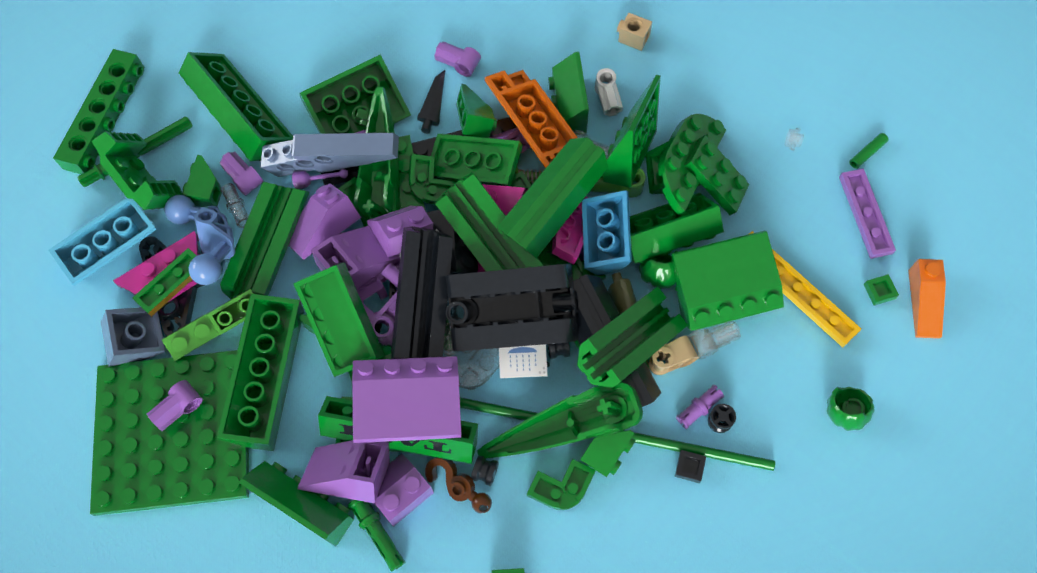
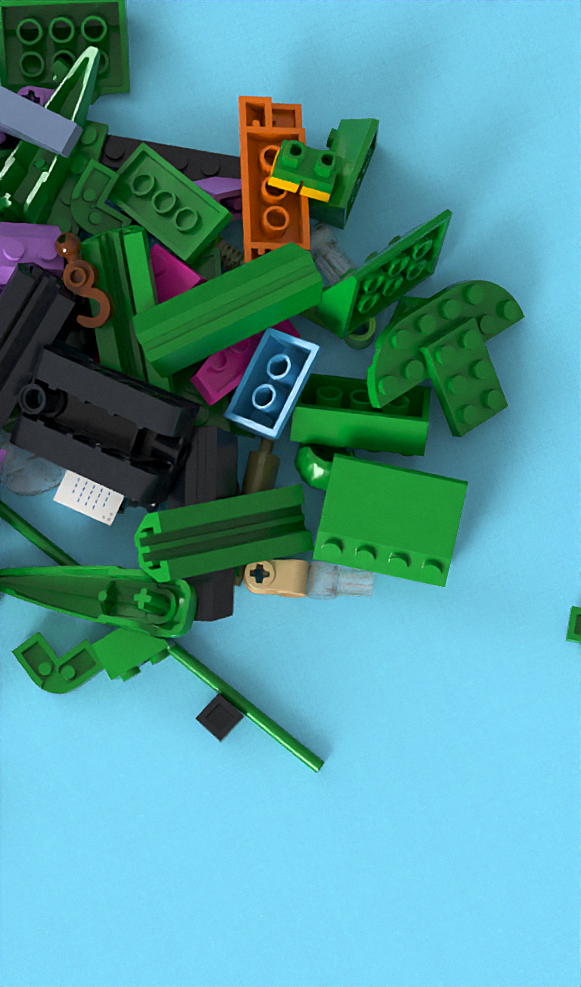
camera: 25 degrees right, 10 degrees up
(432, 105) = (160, 95): black bar -> none
(448, 222) = (82, 278): none -> reddish brown piece
(462, 60) = (235, 46): medium lavender piece -> none
(474, 114) = (203, 138): green slope -> none
(552, 95) = (302, 163): none -> green hips
(608, 93) = (399, 190): white piece -> none
(634, 31) = (486, 129): tan brick -> none
(700, 406) = (273, 654): medium lavender pin -> none
(725, 414) = (289, 675): black wheel -> none
(815, 304) = (486, 584): yellow plate -> none
(850, 408) = (448, 747): green hair -> none

